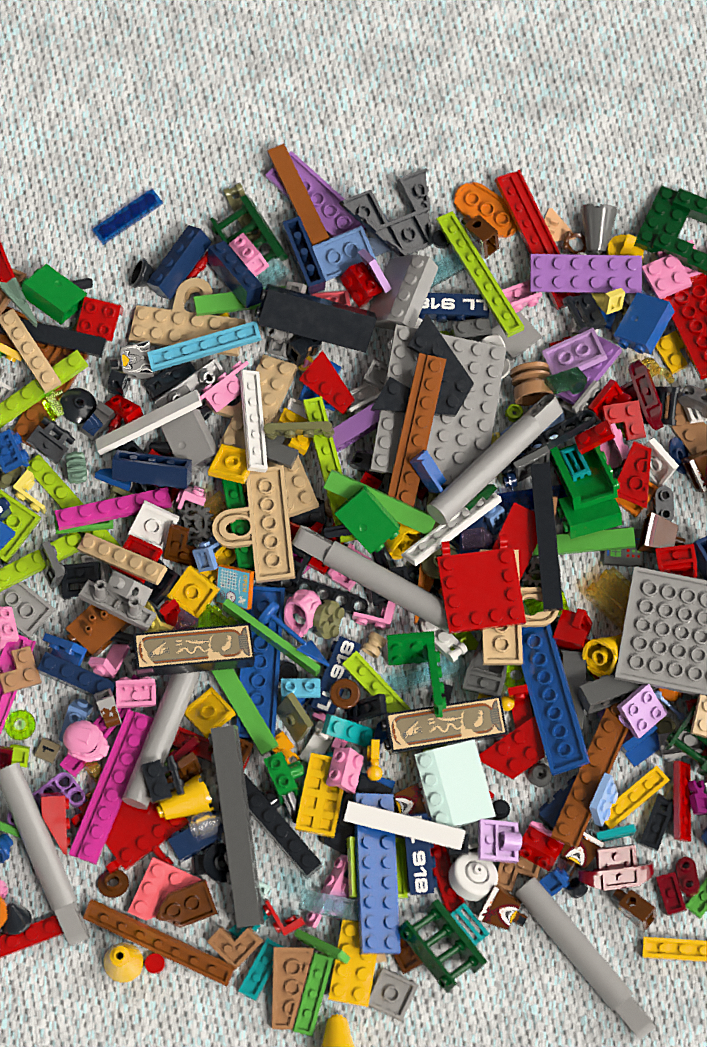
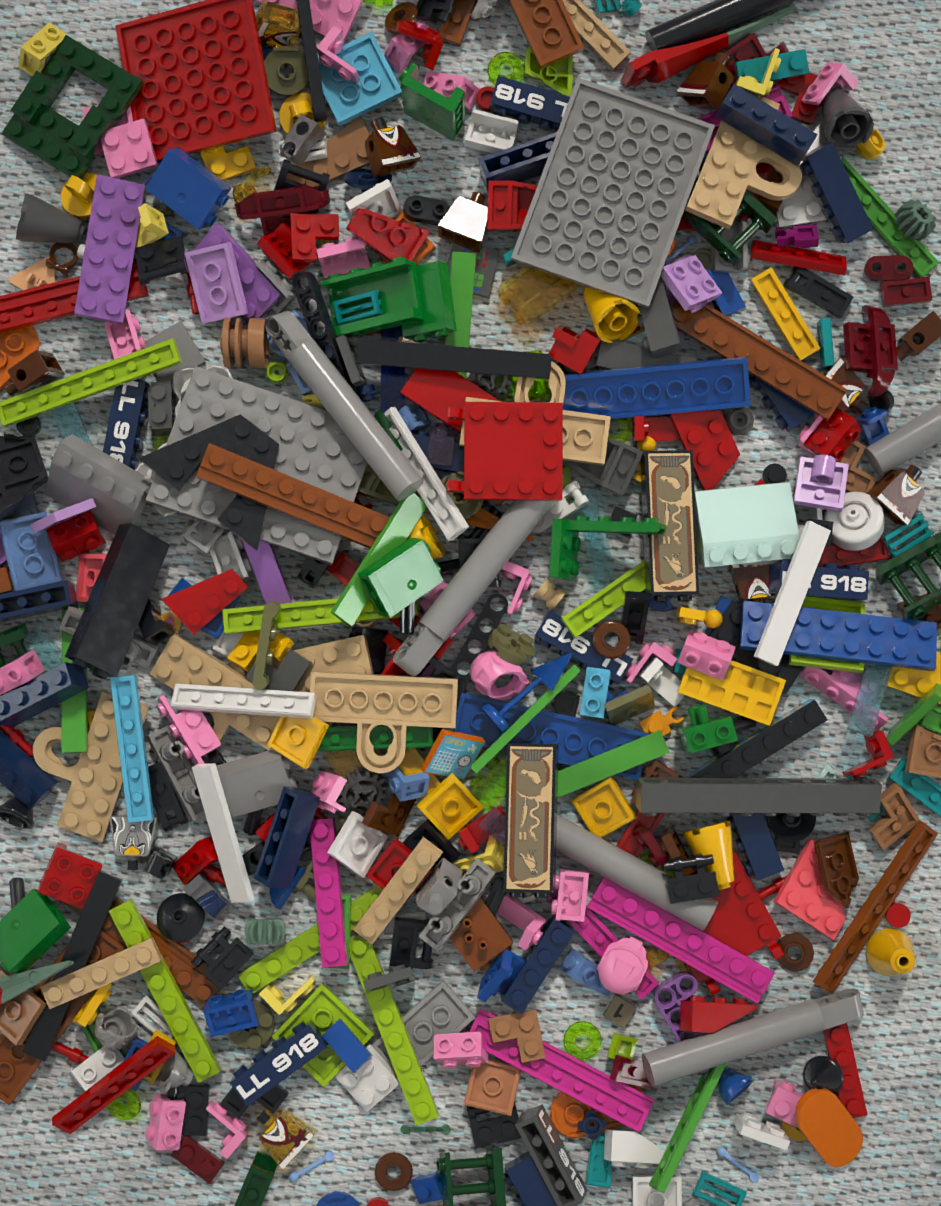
camera: 80 degrees left, 15 degrees up
(52, 406) = (181, 949): clear neon green bracket -> none
(108, 708) = (587, 932): leg -> none
(204, 825) = (750, 835): clear head -> none
(347, 731) = (658, 643): teal plate -> none
(428, 472) = (350, 490): blue panel -> none
(570, 379) = (253, 296): clear green plate -> none
(594, 436) = (330, 276): red plate -> none
(603, 800) = (799, 352): light blue plate -> none

